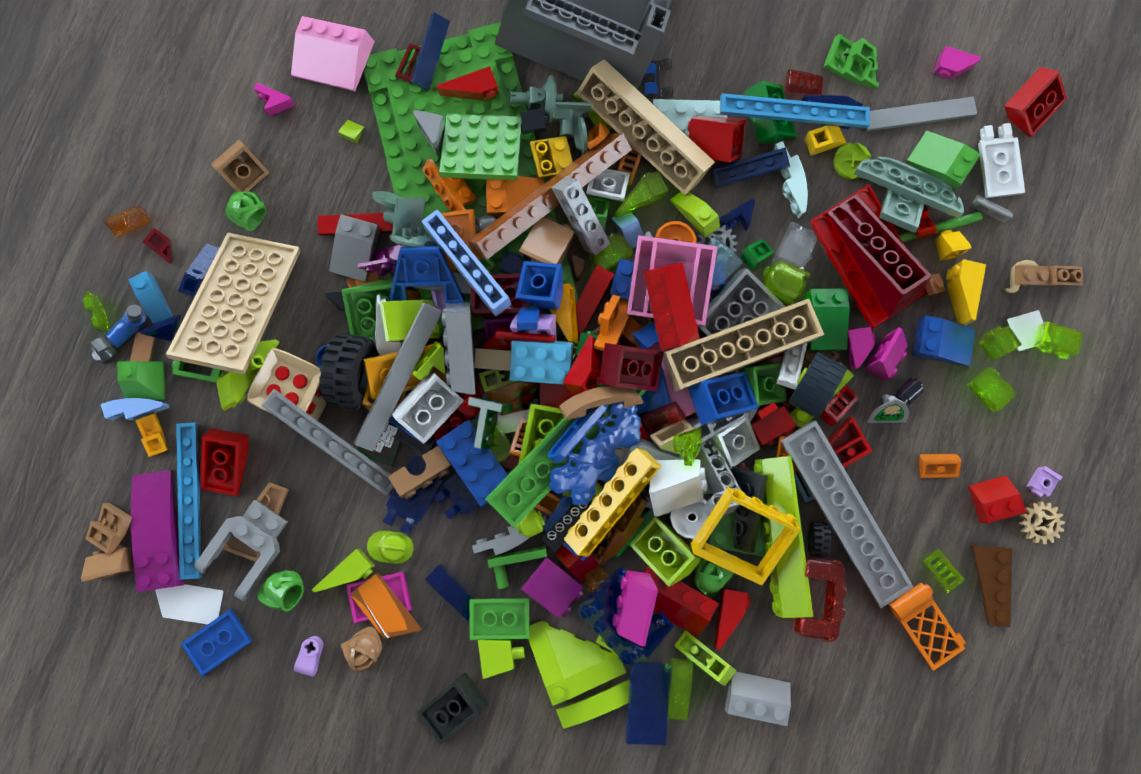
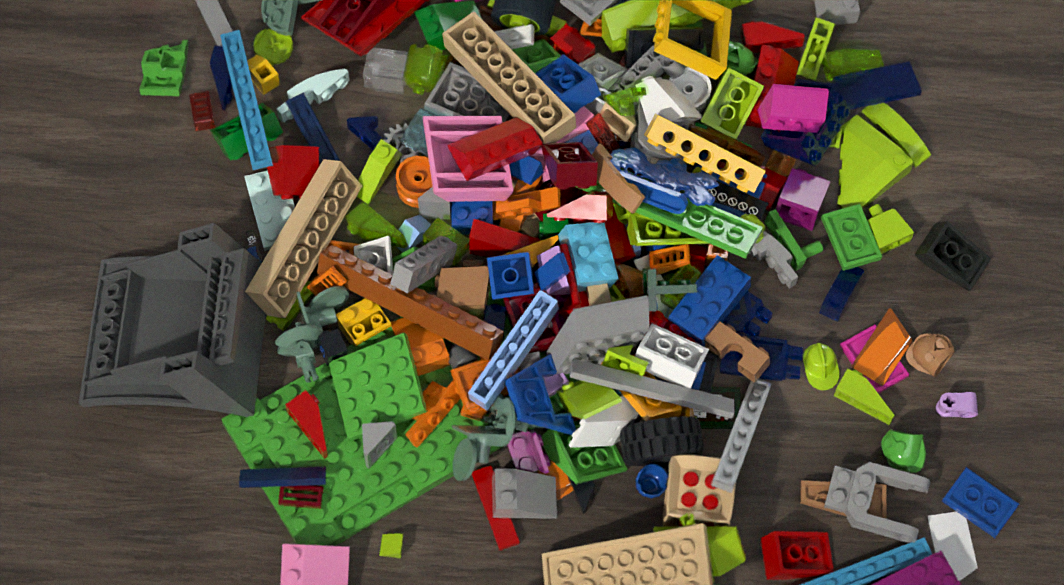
camera: 110 degrees left, 15 degrees down
(756, 253) = (401, 106): green slope -> none

